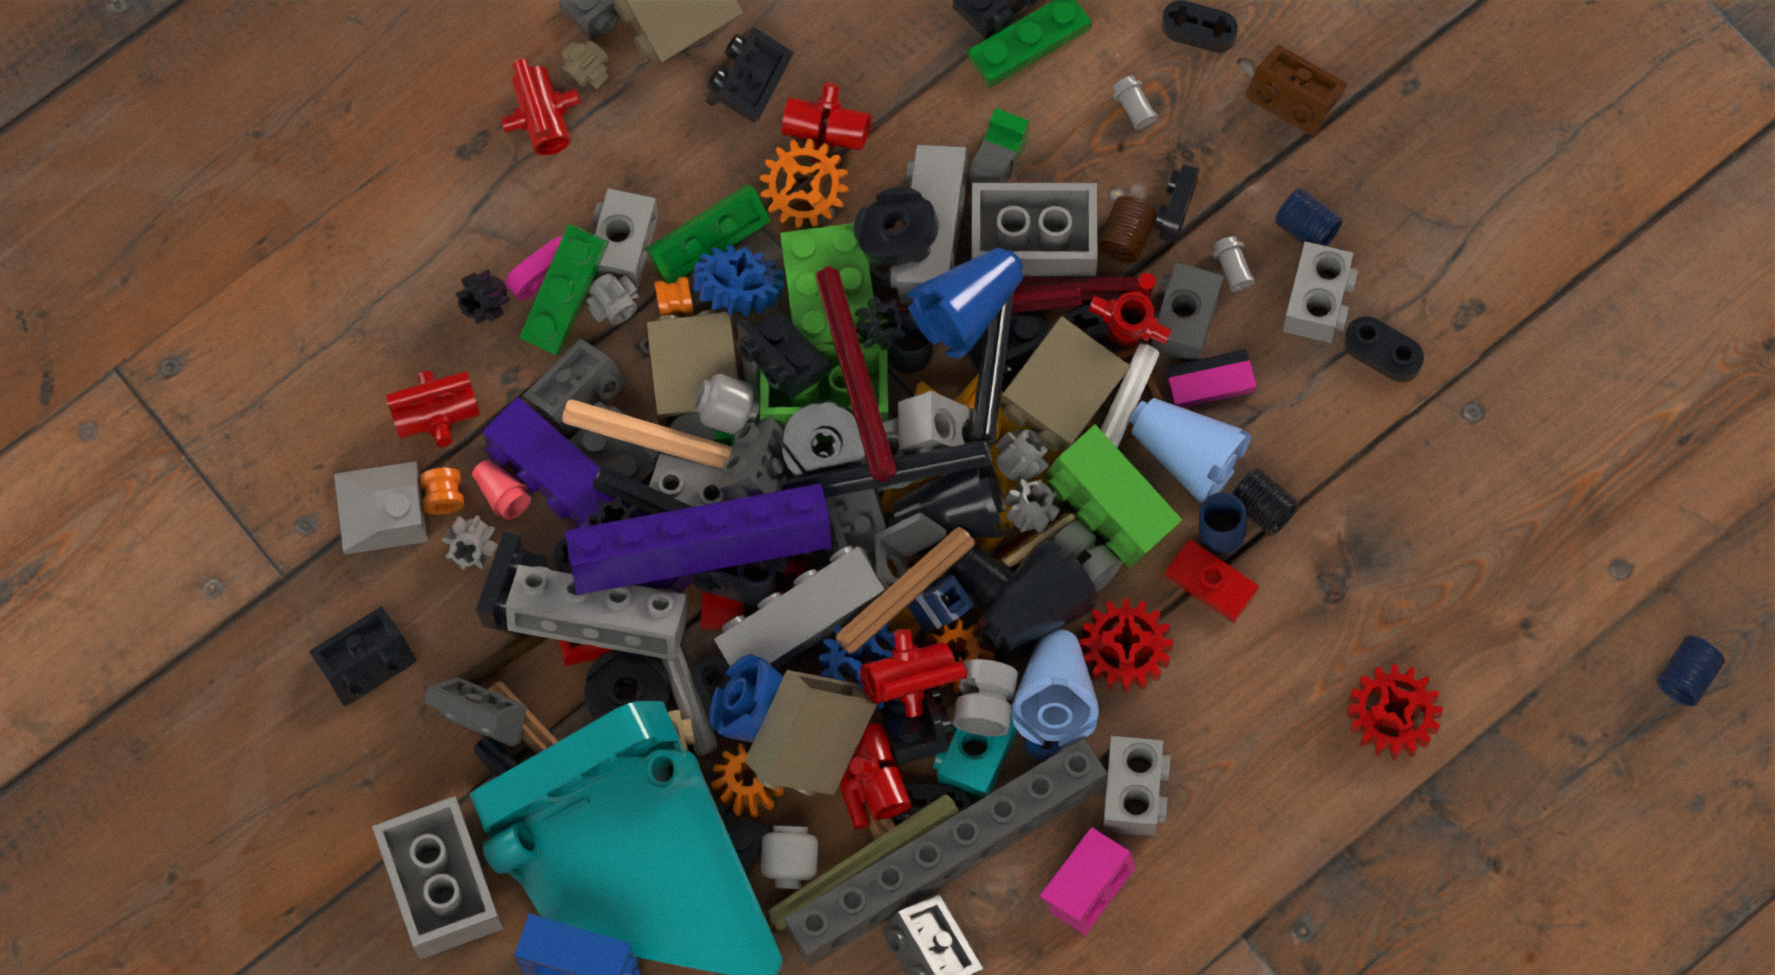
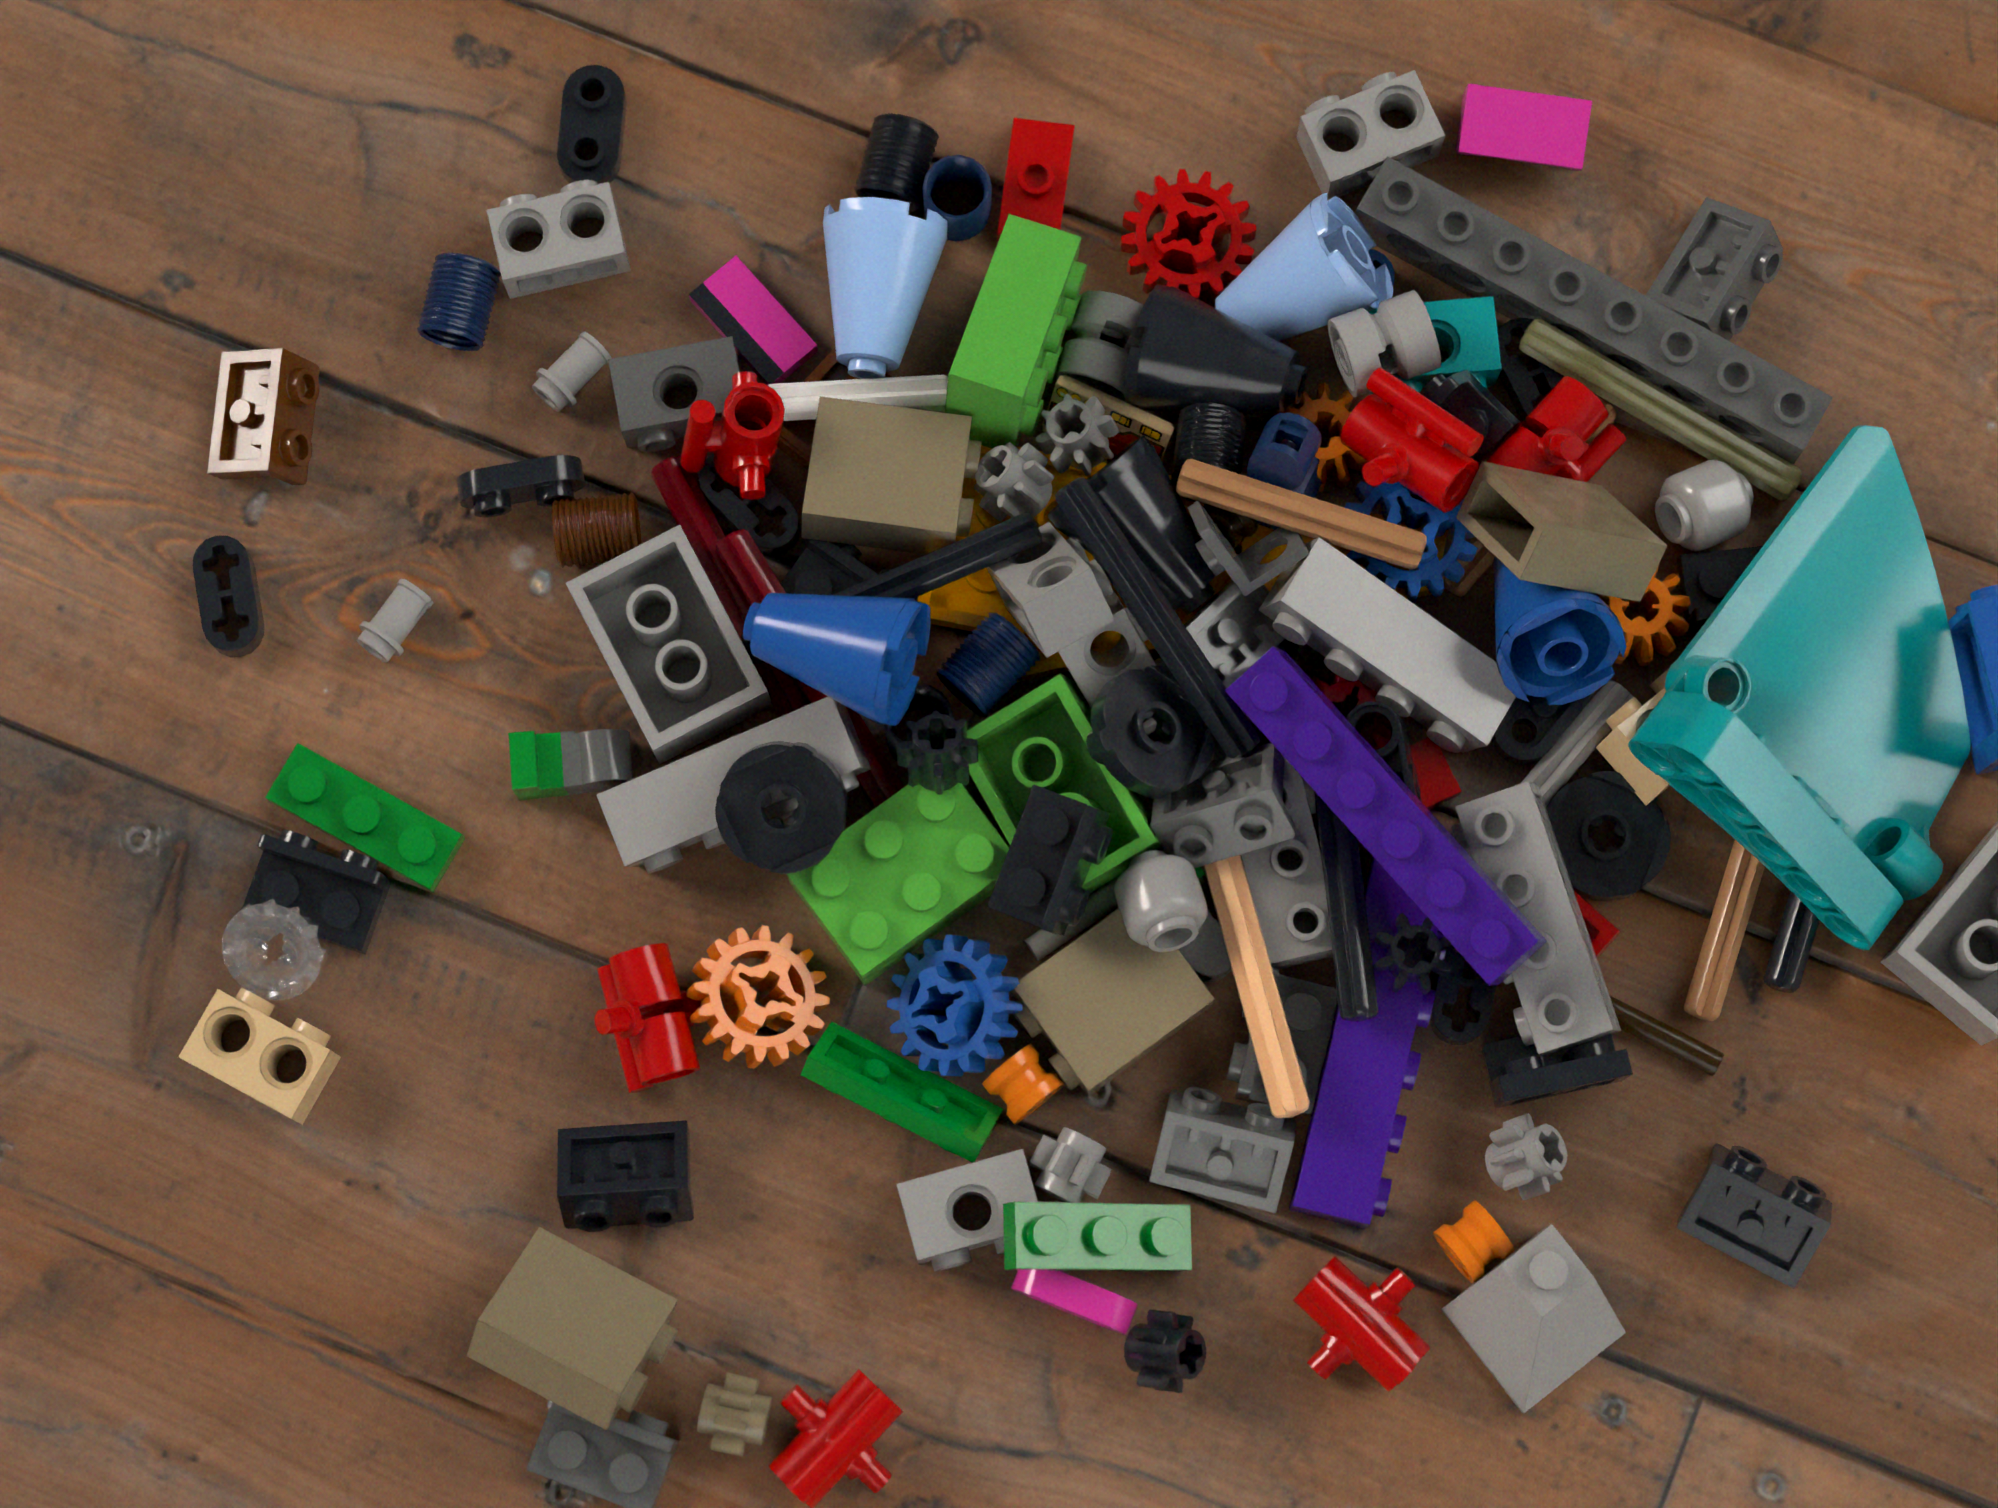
camera: 120 degrees left, 10 degrees up
(478, 709) = (1755, 1002): dark grey bracket -> none
(501, 490) = (1423, 1164): coral cone -> none
(855, 374) = (1038, 734): dark red axle -> none
(918, 376) = (988, 664): none -> dark blue piece

